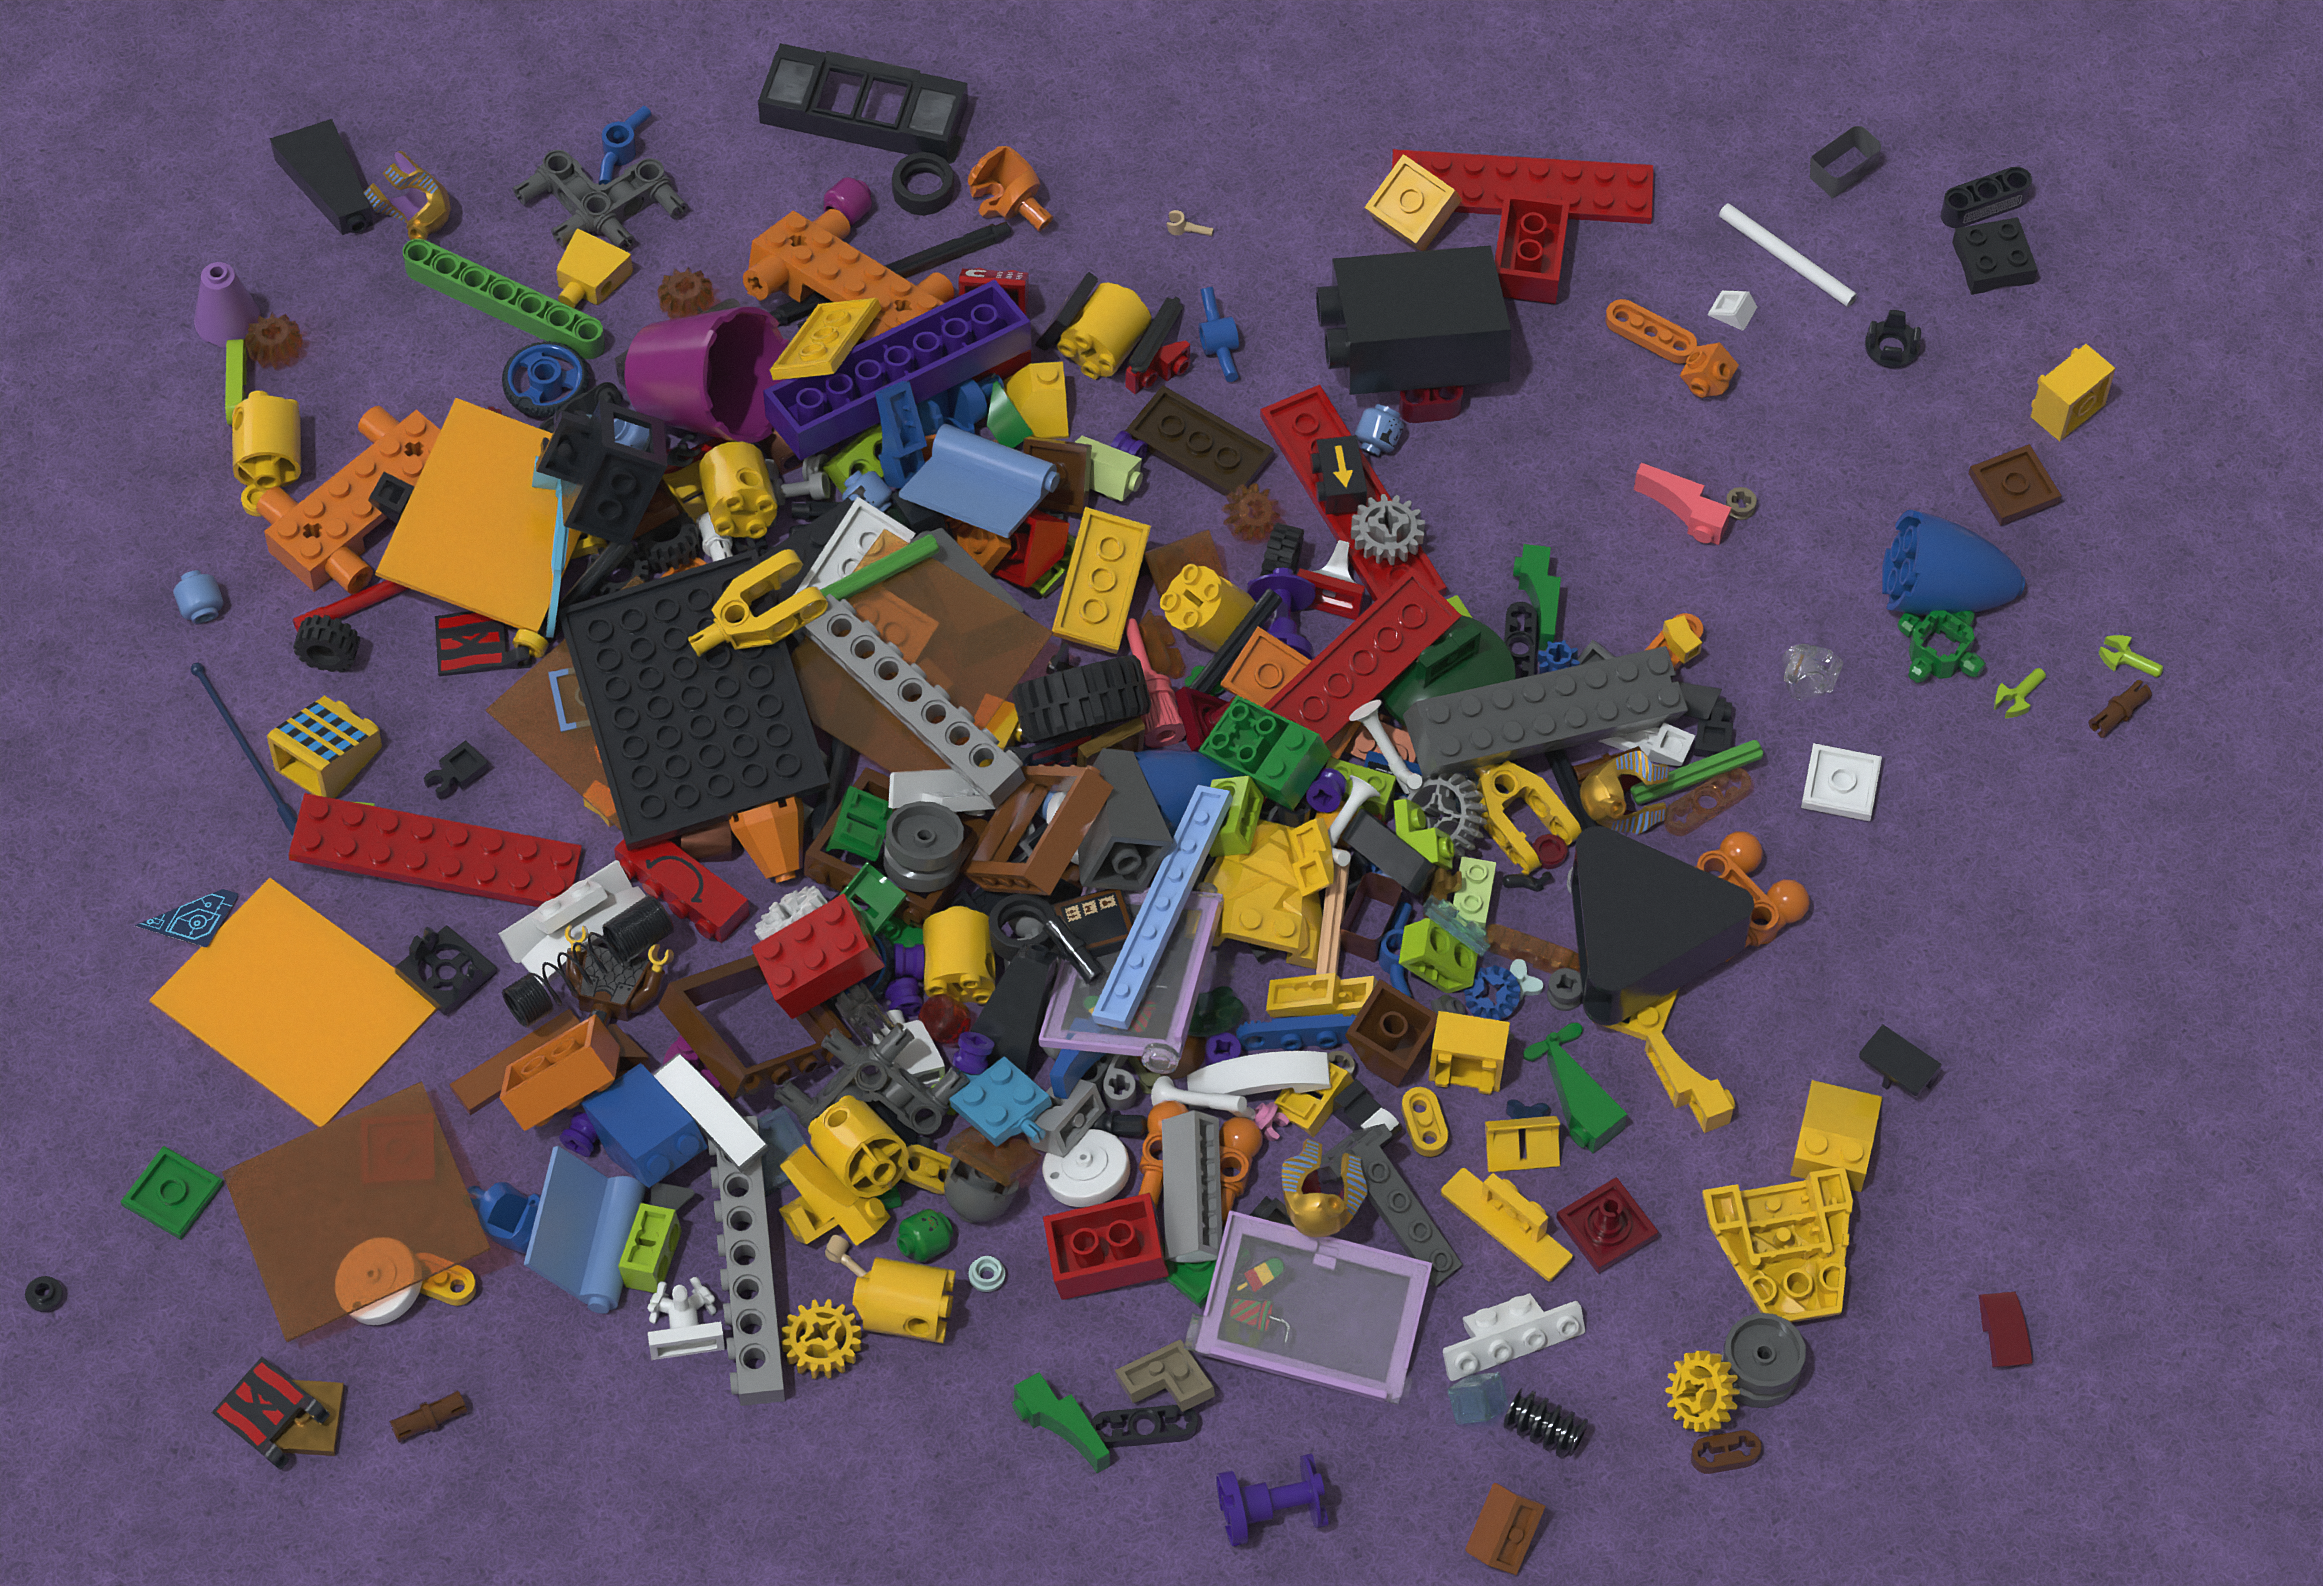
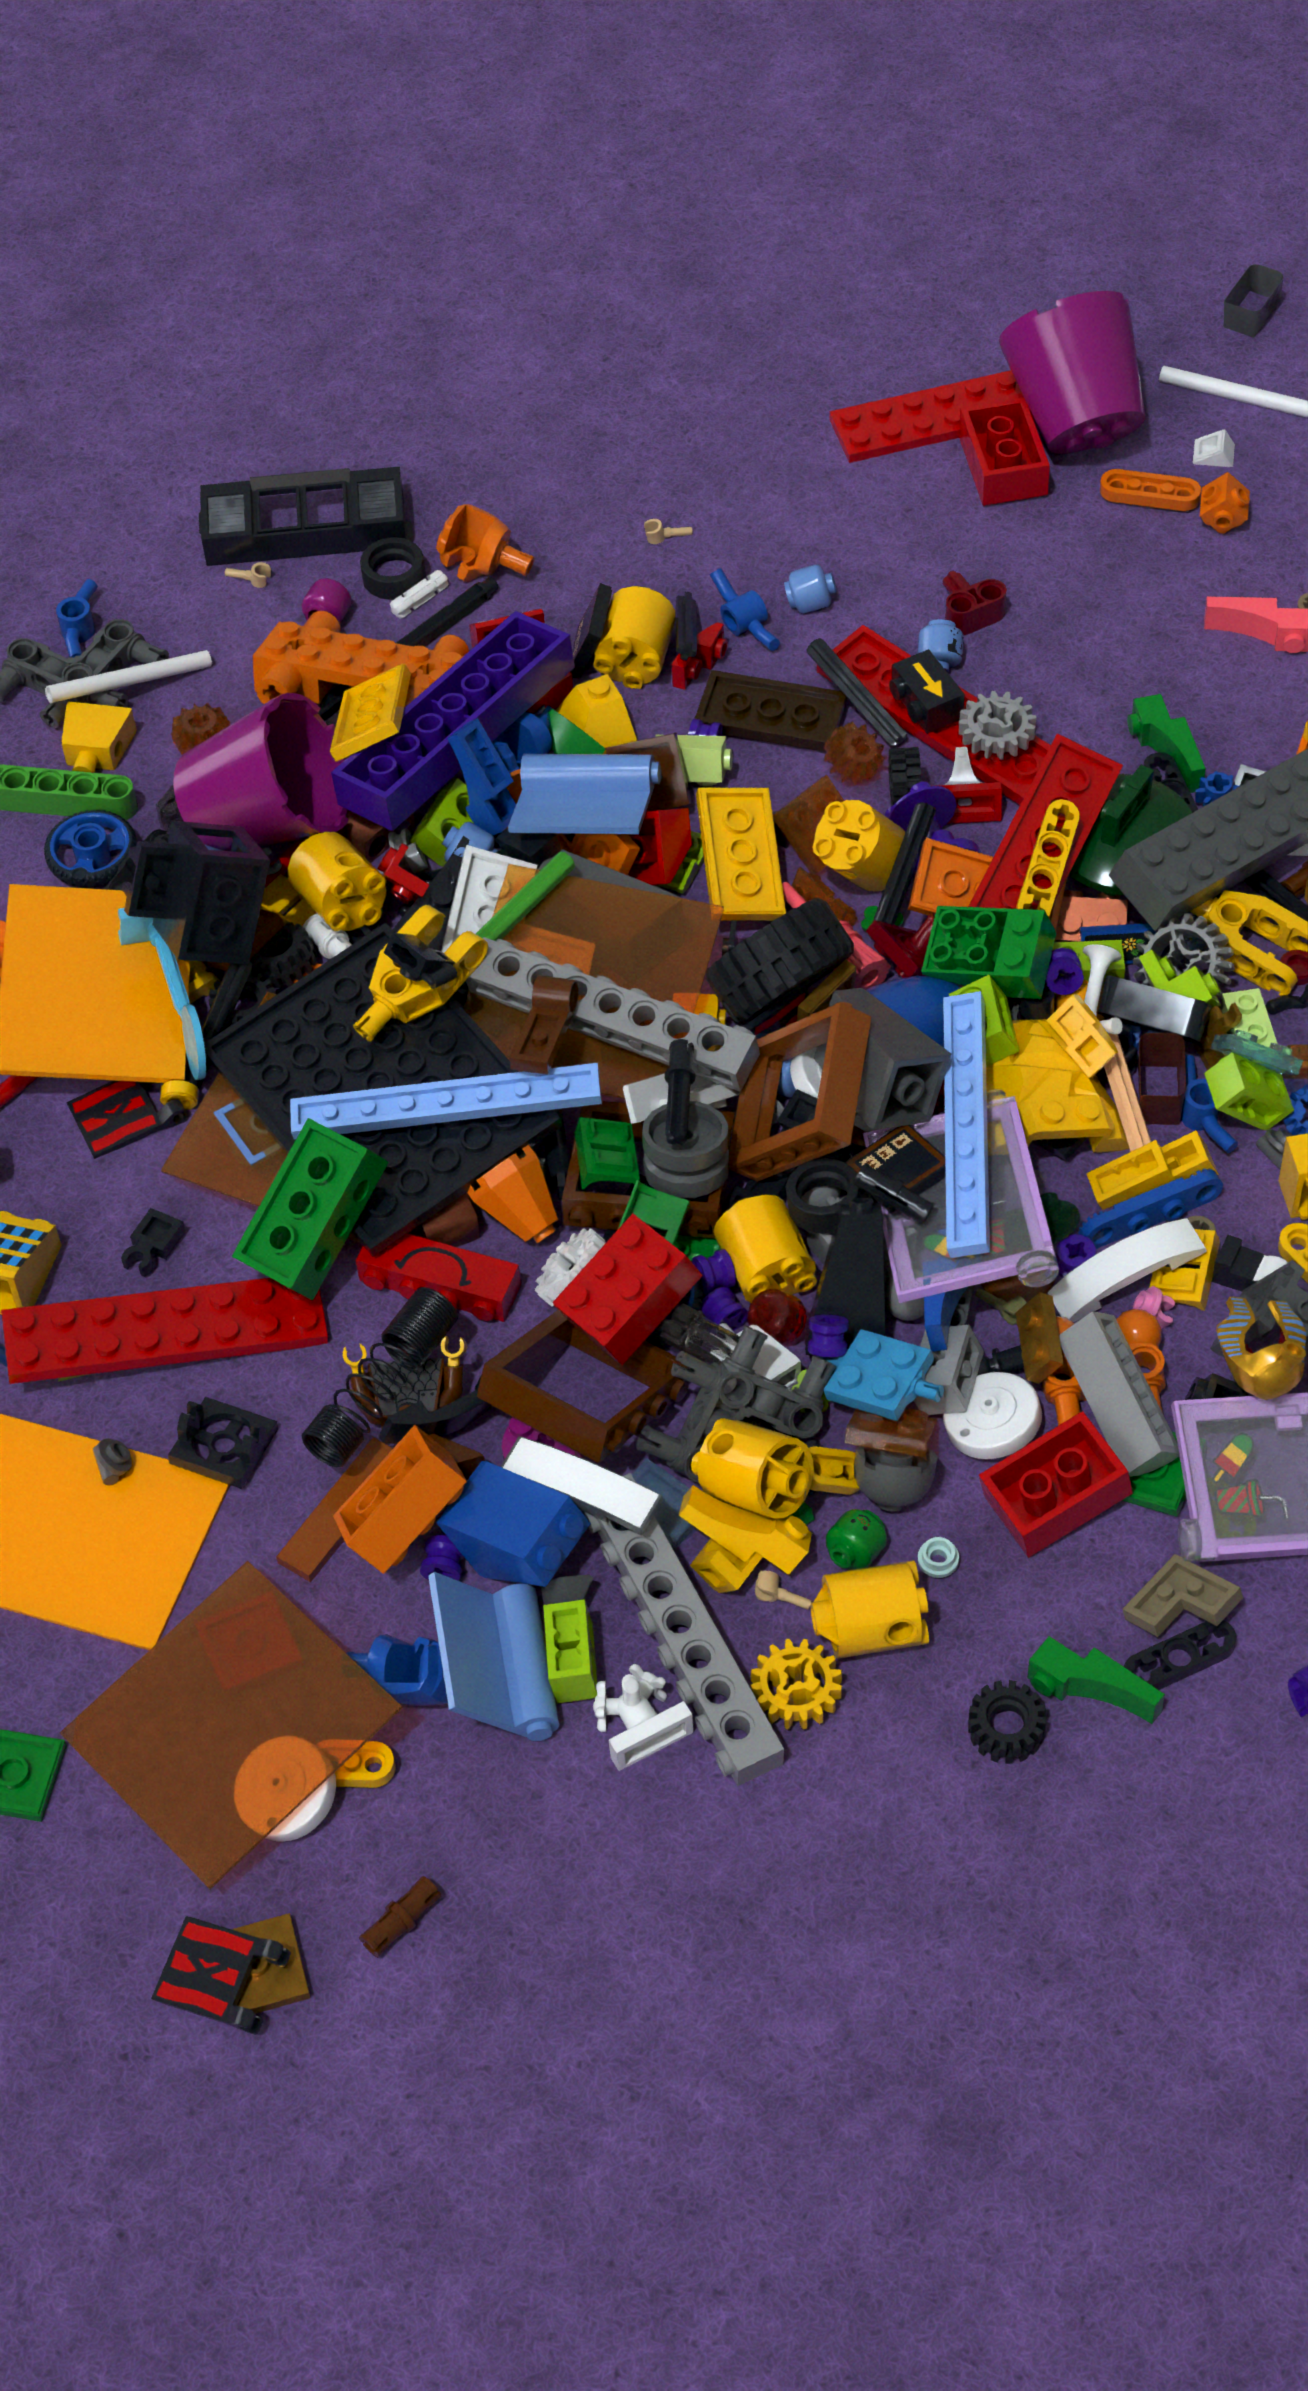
camera: 15 degrees left, 5 degrees down
(349, 954) = (112, 1460): none -> dark grey plate
(561, 910) = (325, 1343): white bracket -> none
(586, 793) = (310, 1208): none -> green brick
(593, 919) = (335, 1371): white slope -> none
(624, 1017) = (439, 1422): none -> black slope
(634, 219) = (128, 676): none -> white piece
(738, 734) = (449, 1100): none -> light blue plate
(759, 602) = (420, 961): none -> black piece
(794, 512) = (402, 883): none -> red bracket
(801, 143) = (256, 575): none -> tan hand
(859, 681) = (546, 1024): none -> reddish brown plate
(936, 217) = (419, 594): none -> white axle
(937, 784) = (679, 1080): none -> black axle
(972, 1410) = (1002, 1744): none -> black tyre
(1118, 1077) = (985, 1315): light grey panel -> none
(1148, 1116) = (1039, 1338): none -> pearl gold plate
(1165, 1090) = (1122, 1297): white piece -> none
(1280, 452) = (856, 693): none -> black axle
(1288, 331) = (810, 589): none -> medium blue head
(1353, 691) = (1049, 866): none -> yellow beam
(1369, 717) = (1077, 886): white piece -> none
(1390, 1032) = (1242, 1179): reddish brown slope -> none
(1413, 203) = (876, 444): yellow container -> none
(1416, 320) = (936, 535): black brick -> none
(1623, 197) = (1078, 370): none -> magenta cone

